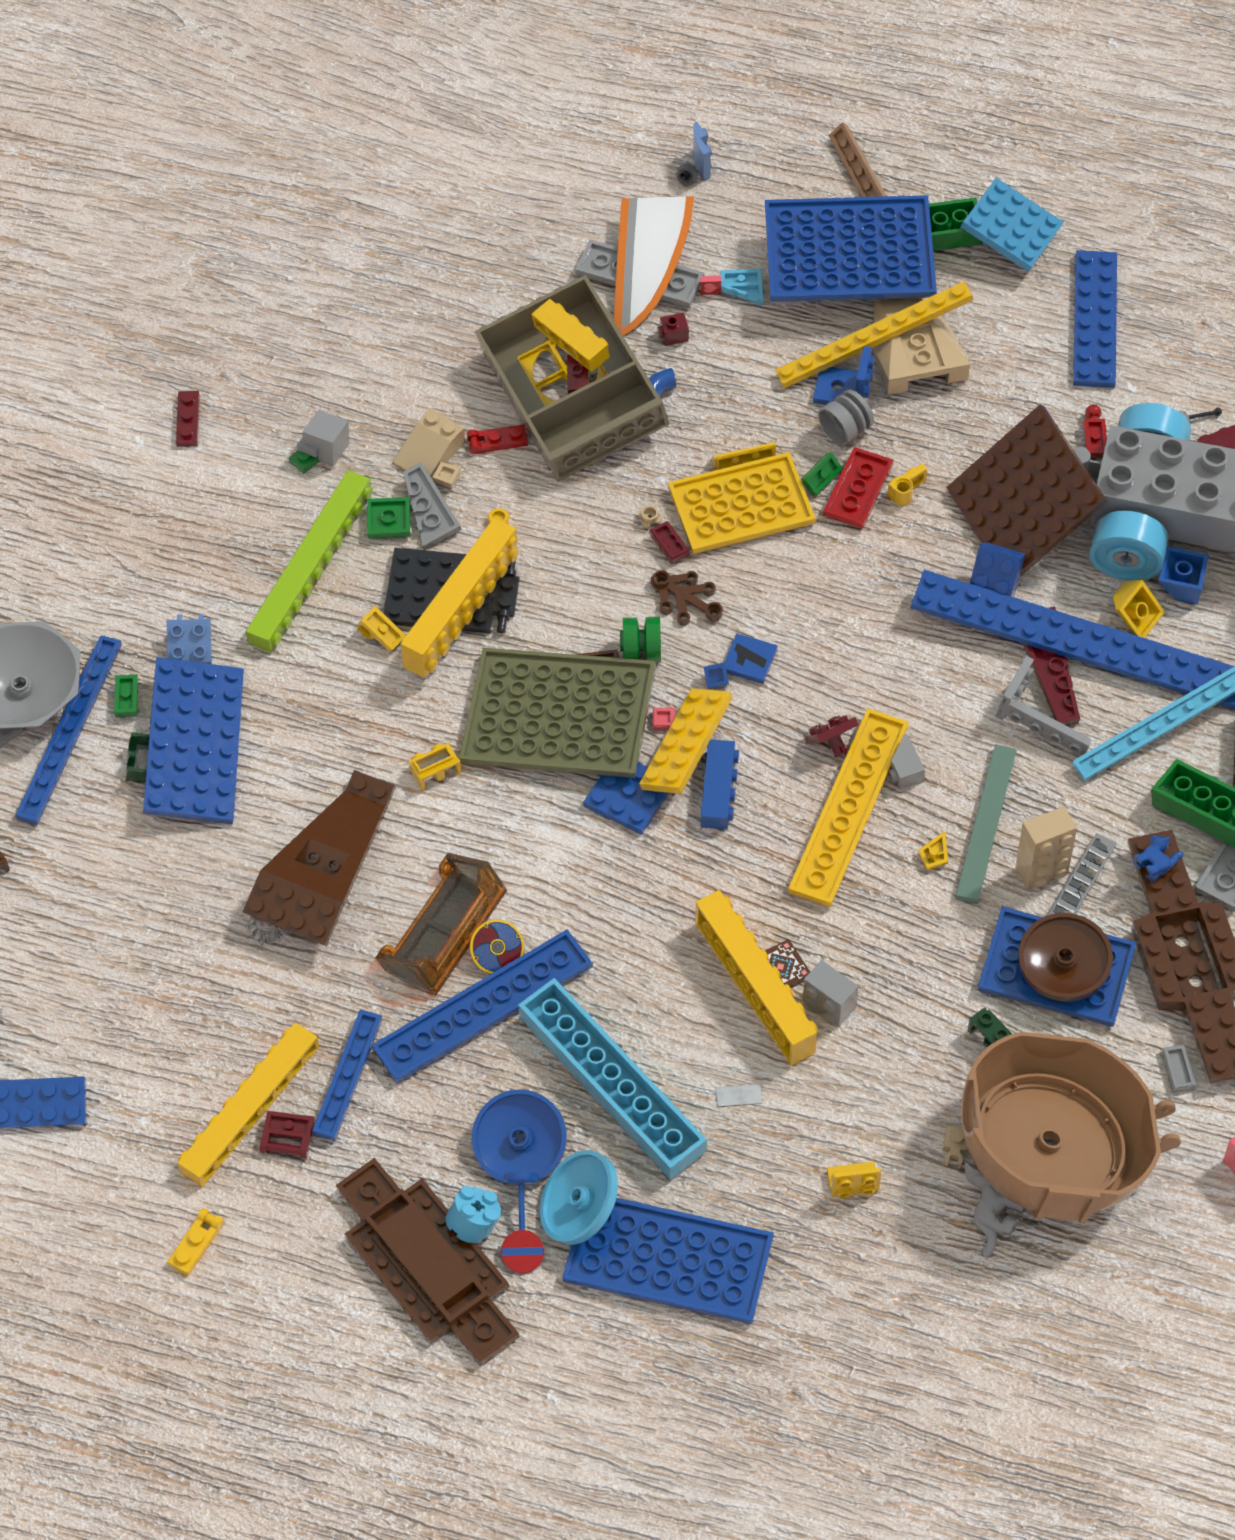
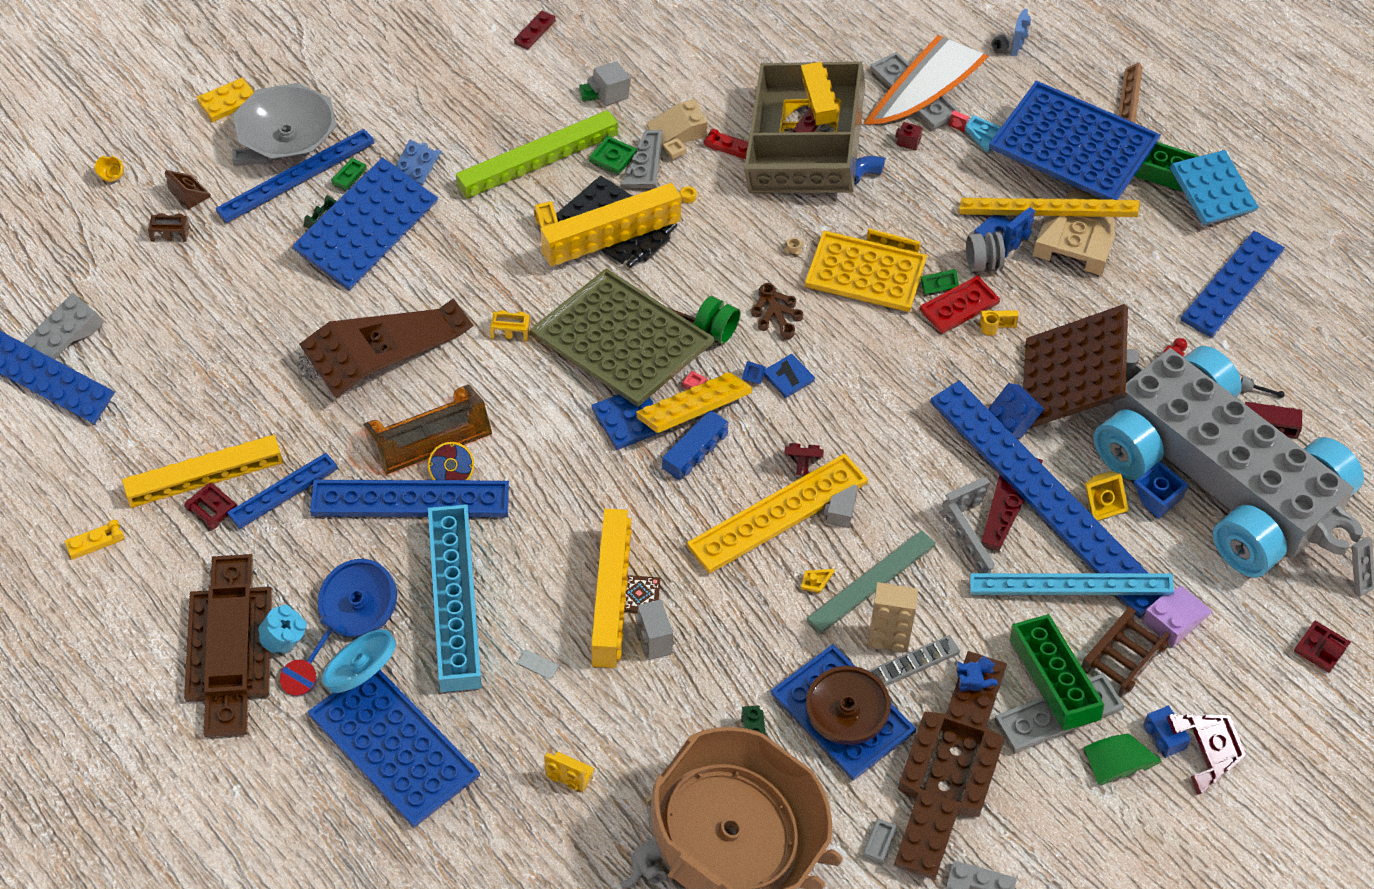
camera: 30 degrees right, 5 degrees down
(669, 542) = (793, 269): dark red plate -> none

